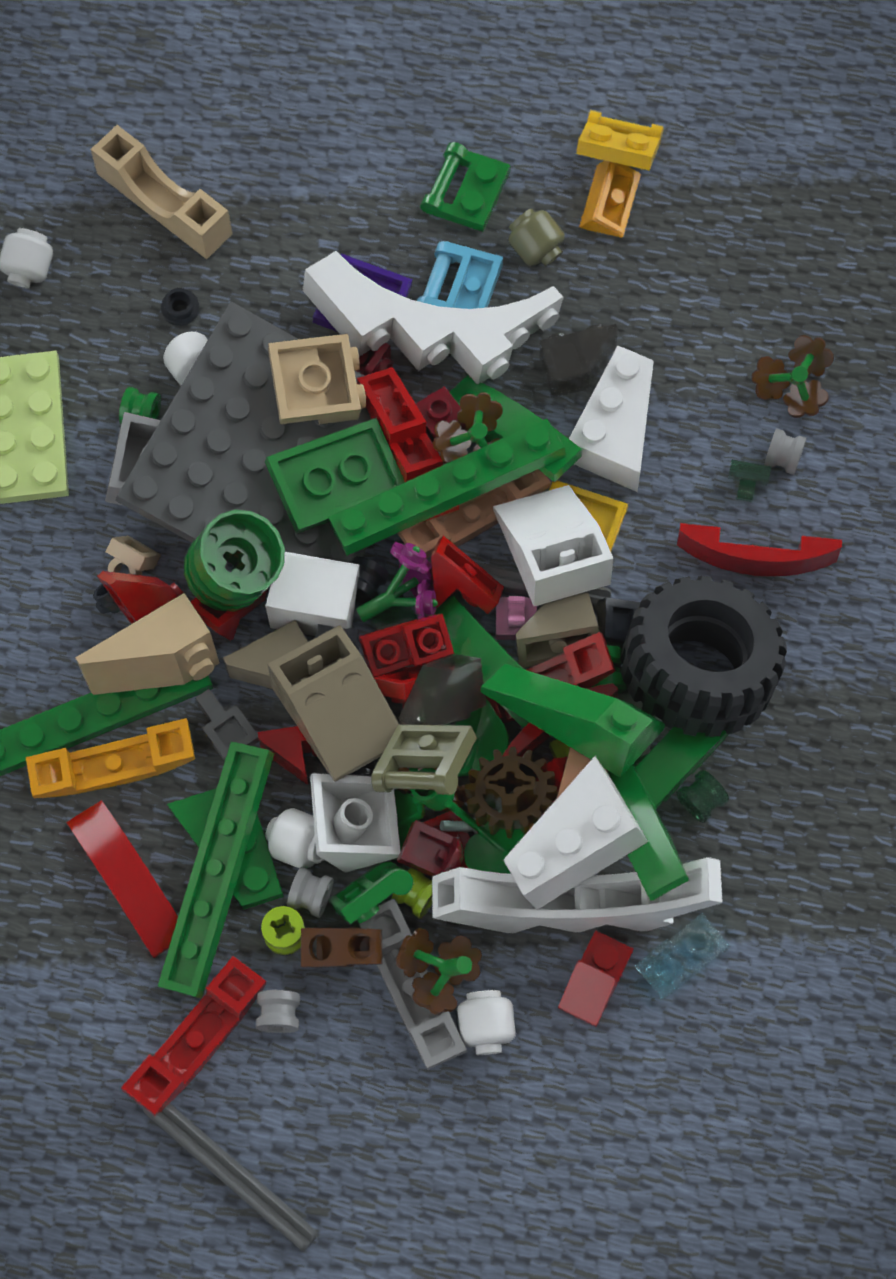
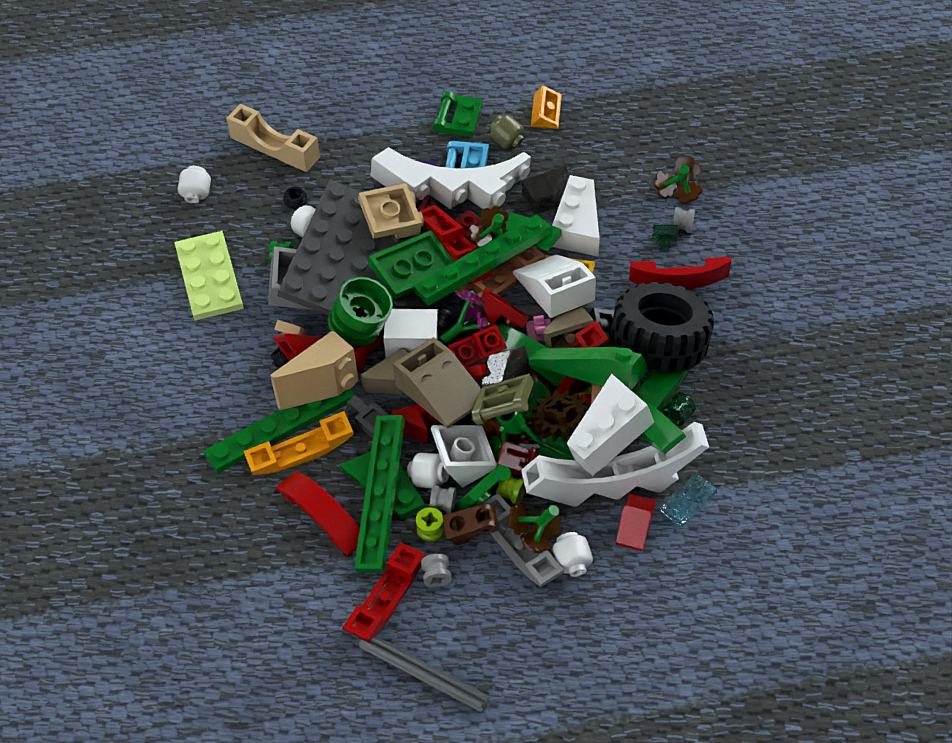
camera: 10 degrees left, 15 degrees down
(619, 141) = (545, 77): yellow plate -> none

